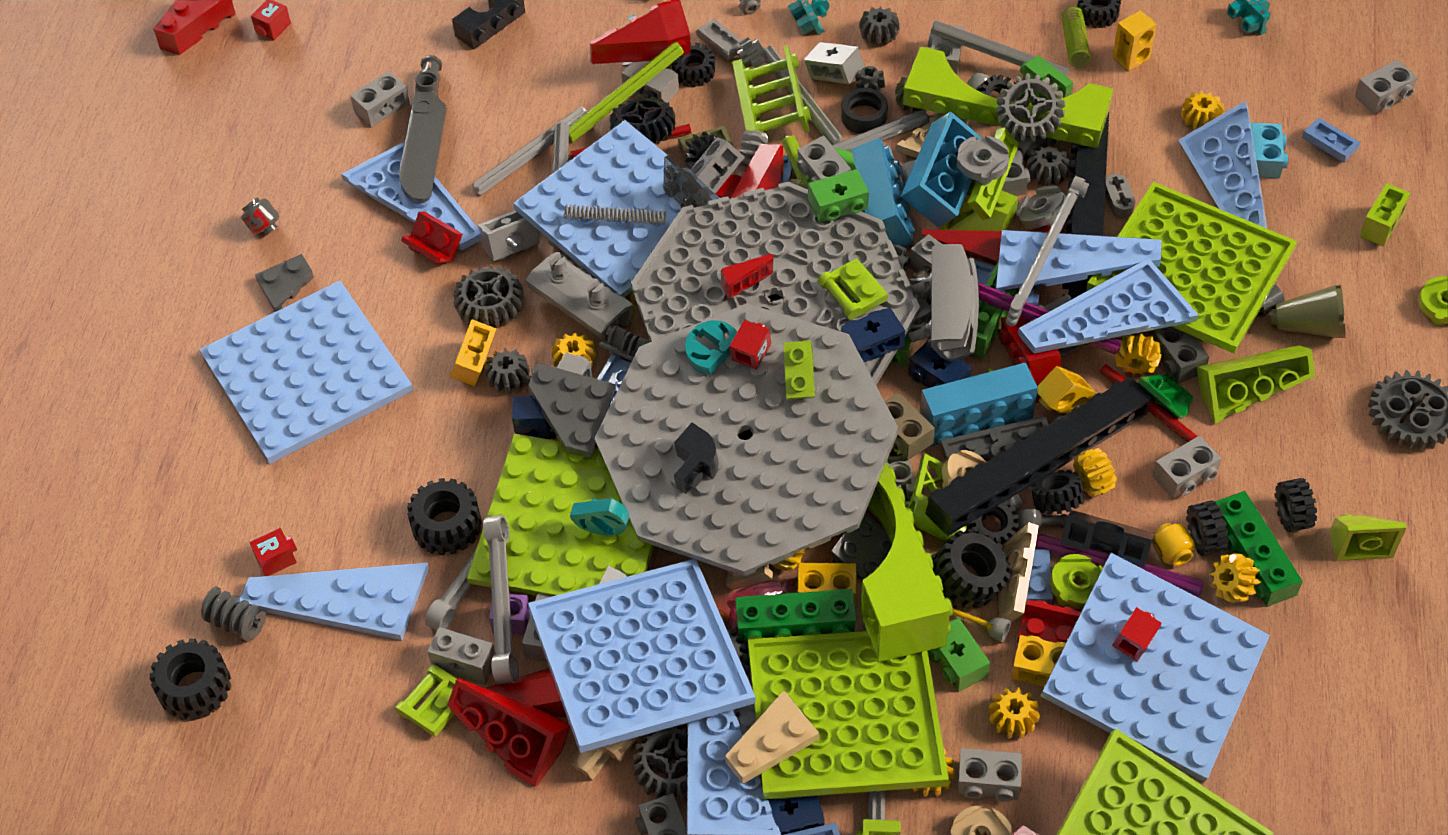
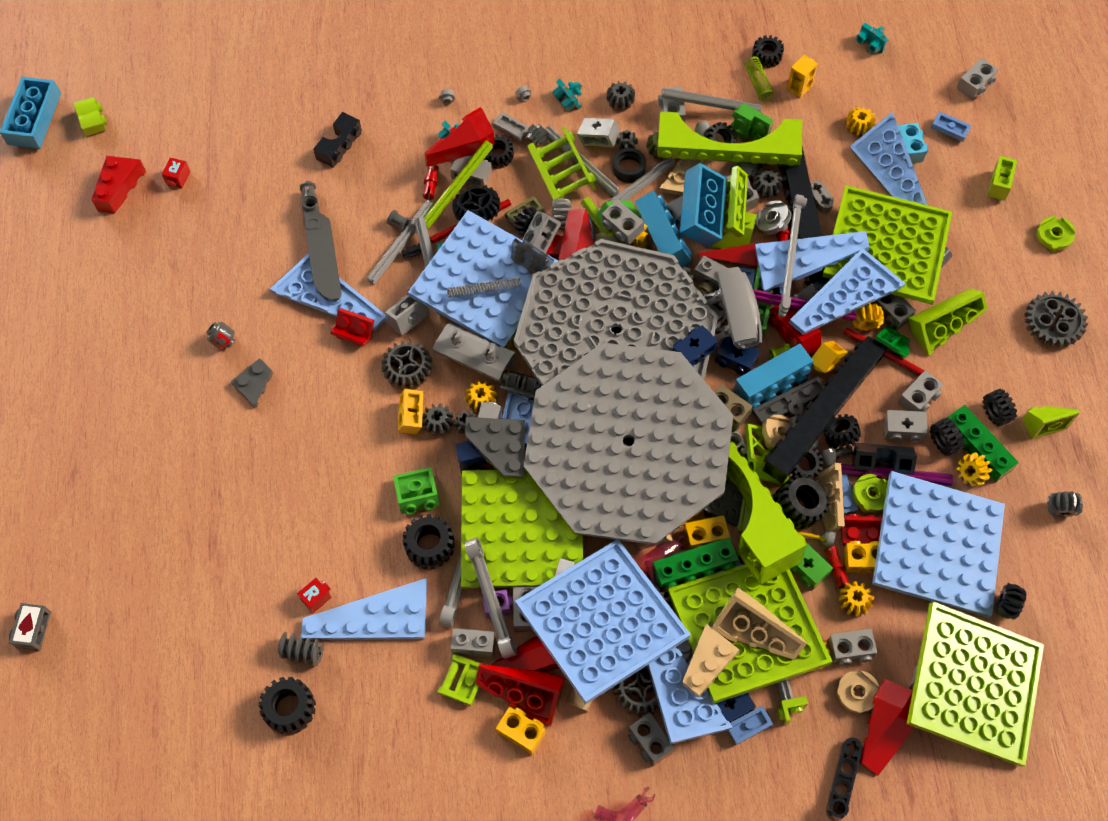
camera: 15 degrees left, 10 degrees up
(305, 371) = (291, 449): light blue plate -> none
(380, 99) = (280, 224): light grey brick -> none
(449, 452) = (416, 491): none -> bright green plate
(486, 783) = (517, 734): none -> yellow brick
(535, 122) = (398, 220): none -> dark grey bush
(540, 164) = (411, 251): none -> black piece
(593, 86) = (430, 182): none -> red pin
(600, 516) = (546, 524): teal piece -> none
(700, 457) = (605, 464): black brick -> none
(701, 357) = (580, 387): teal piece -> none
(745, 274) = (592, 320): red slope -> none
(750, 344) = (617, 375): red brick -> none
(799, 370) = (656, 389): lime plate -> none
(838, 195) = (641, 245): bright green brick -> none
(848, 704) = (751, 623): none -> tan wedge
(860, 286) = (673, 309): lime plate -> none
(978, 169) = (728, 203): light grey plate -> none
(999, 665) = (838, 566): none -> red pin
(1020, 108) = (750, 140): light grey gear -> none
(1095, 472) = (863, 411): yellow gear -> none
(1137, 634) = (926, 528): red brick -> none
(1151, 502) = (905, 425): none -> light grey brick
(1174, 544) = (927, 452): yellow head -> none
(1239, 762) = (1011, 601): none -> black gear
(1312, 313) = (974, 262): olive cone -> none
(1357, 650) = (1065, 504): none -> dark grey gear

